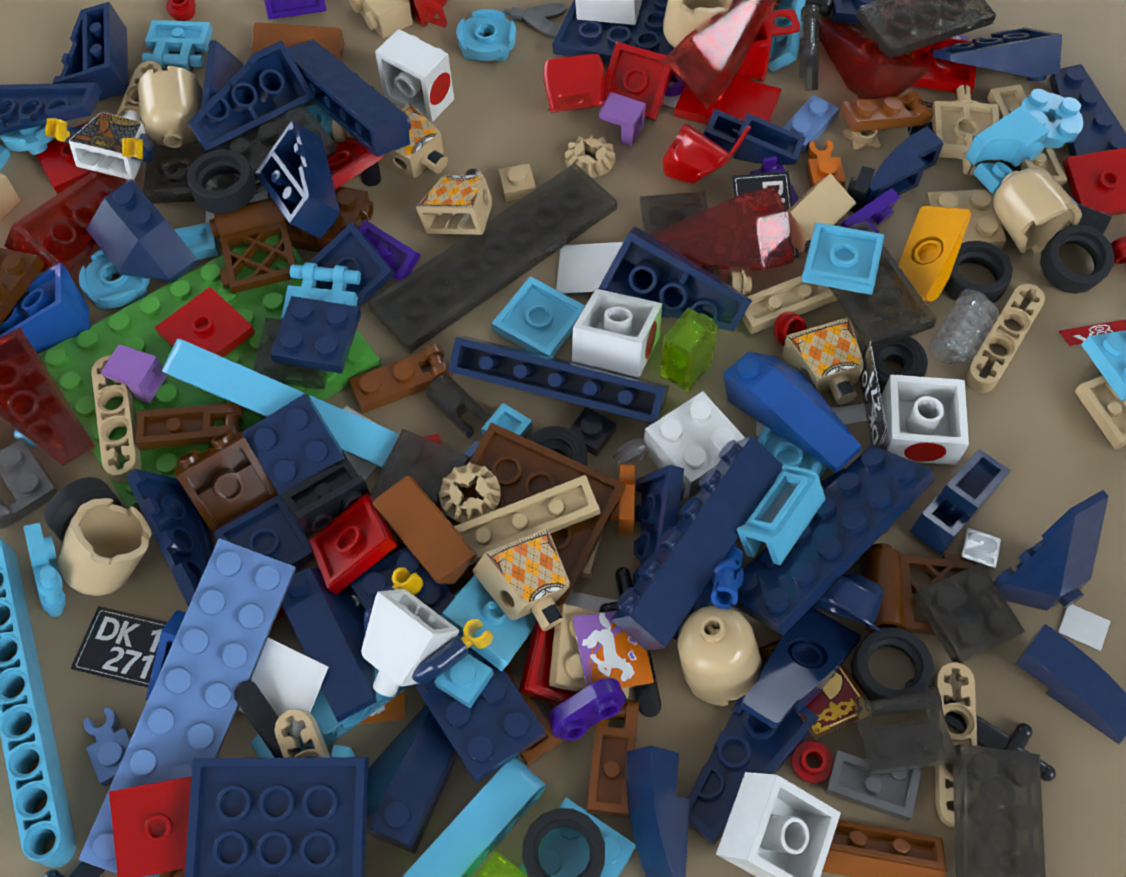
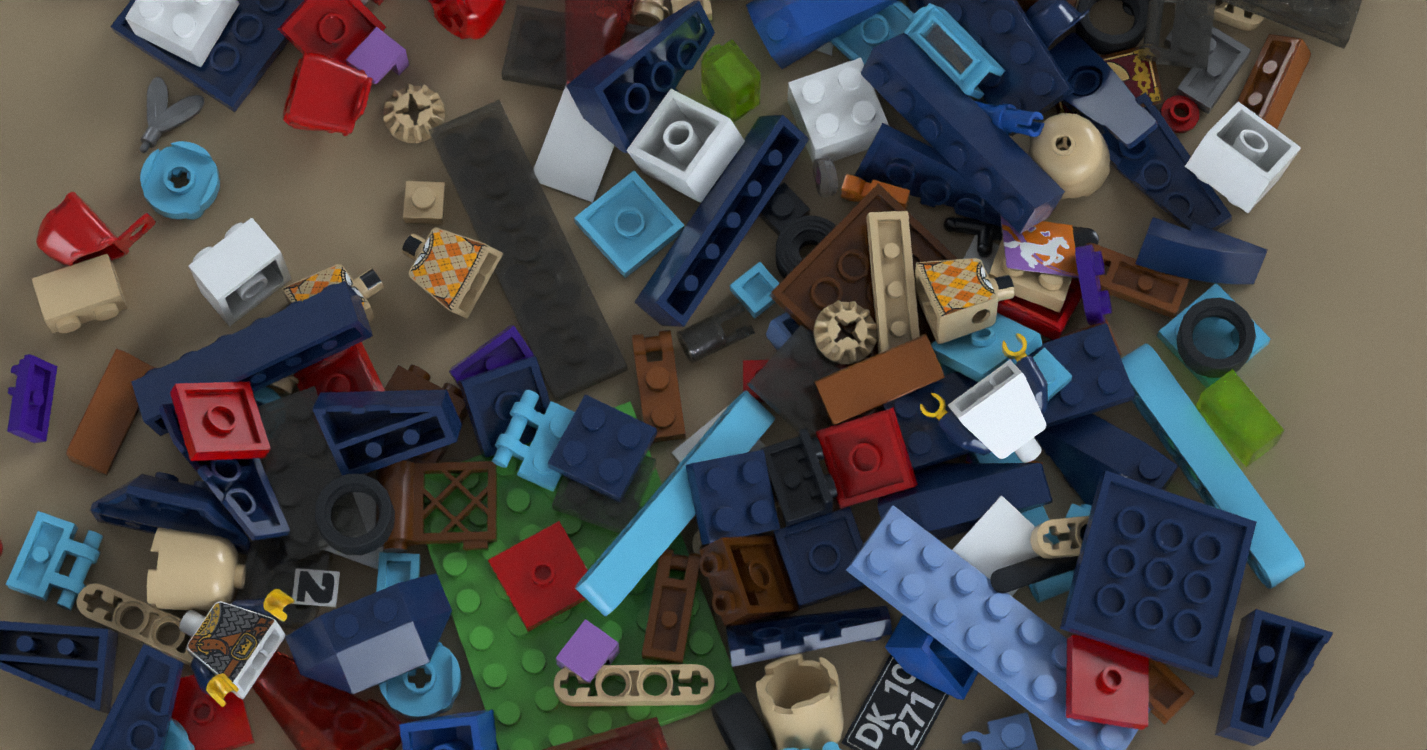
camera: 75 degrees left, 10 degrees up
(175, 190) = (315, 587): none -> sticker
(278, 78) = (219, 421): none -> red plate

